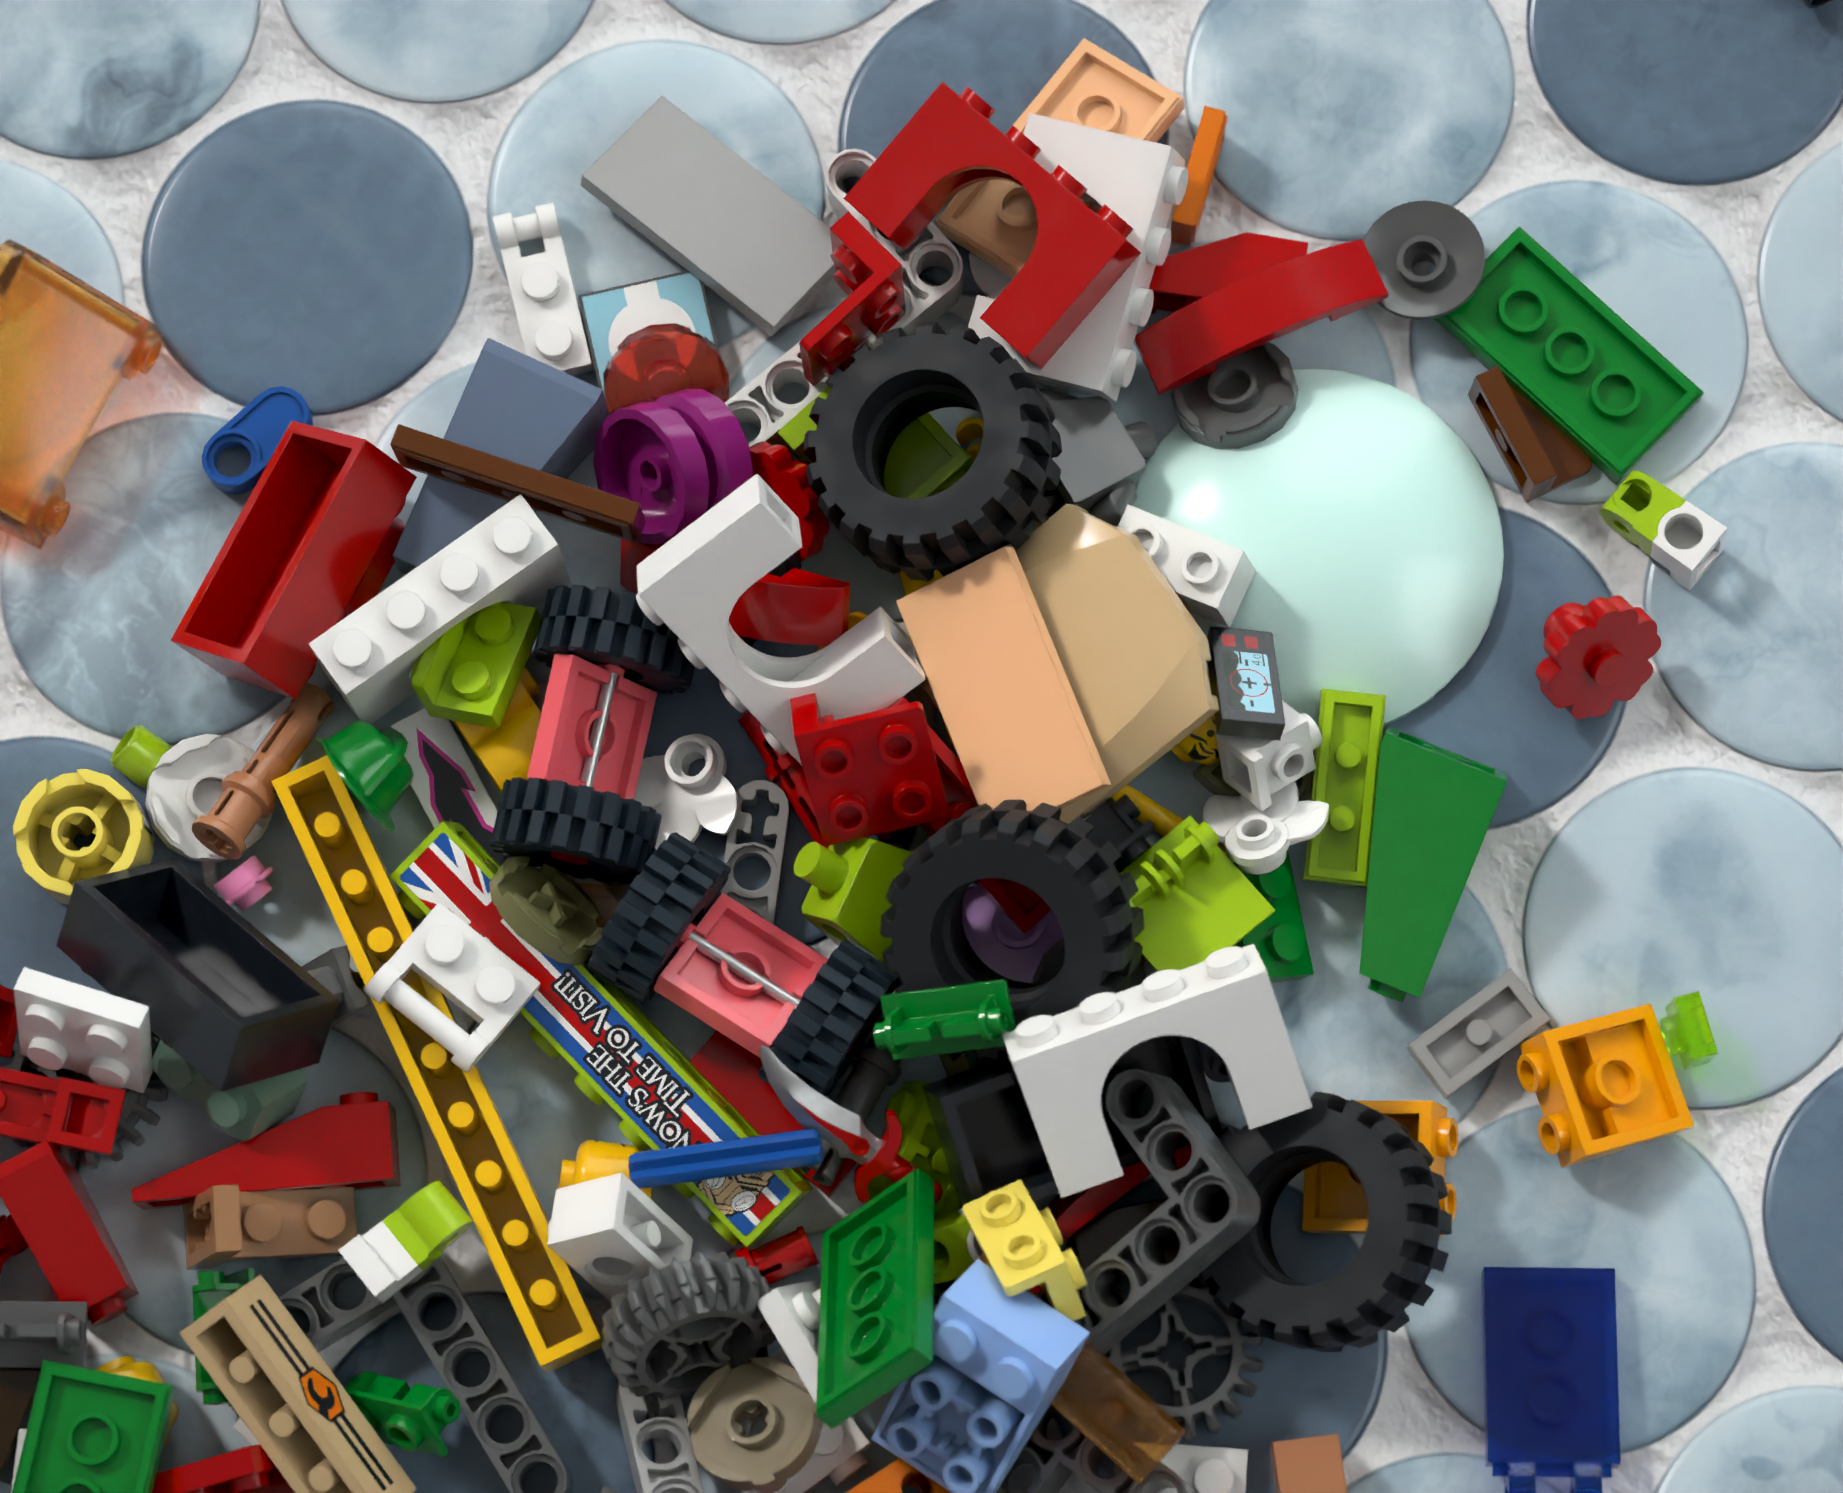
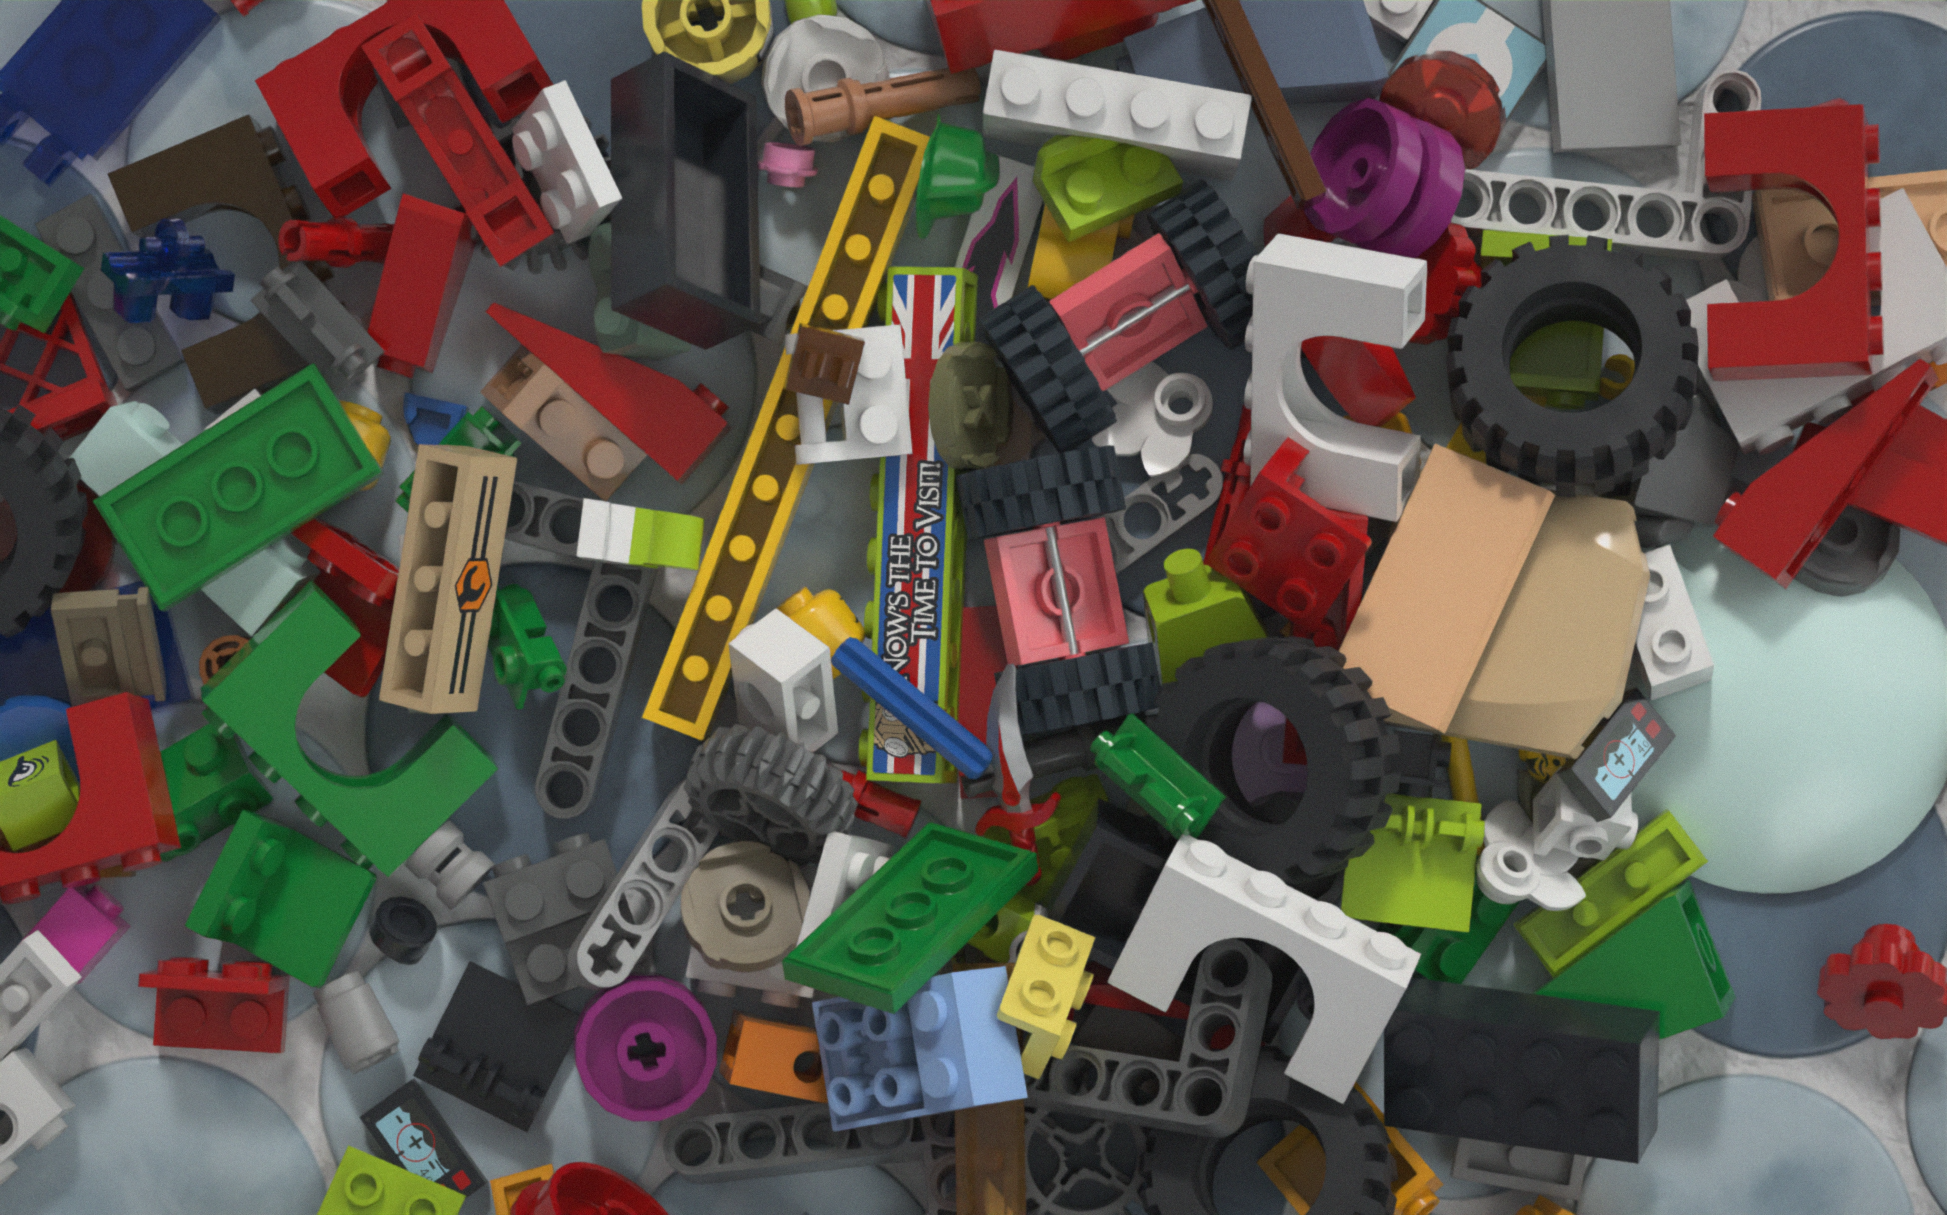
camera: 50 degrees right, 10 degrees up
(166, 1322) = (430, 418): none -> blue tile
(412, 978) = (824, 363): none -> reddish brown tile
(873, 302) = (1659, 202): red bracket -> none
(1182, 380) = (1802, 496): none -> red slope
(1411, 963) = (1523, 1070): none -> black piece

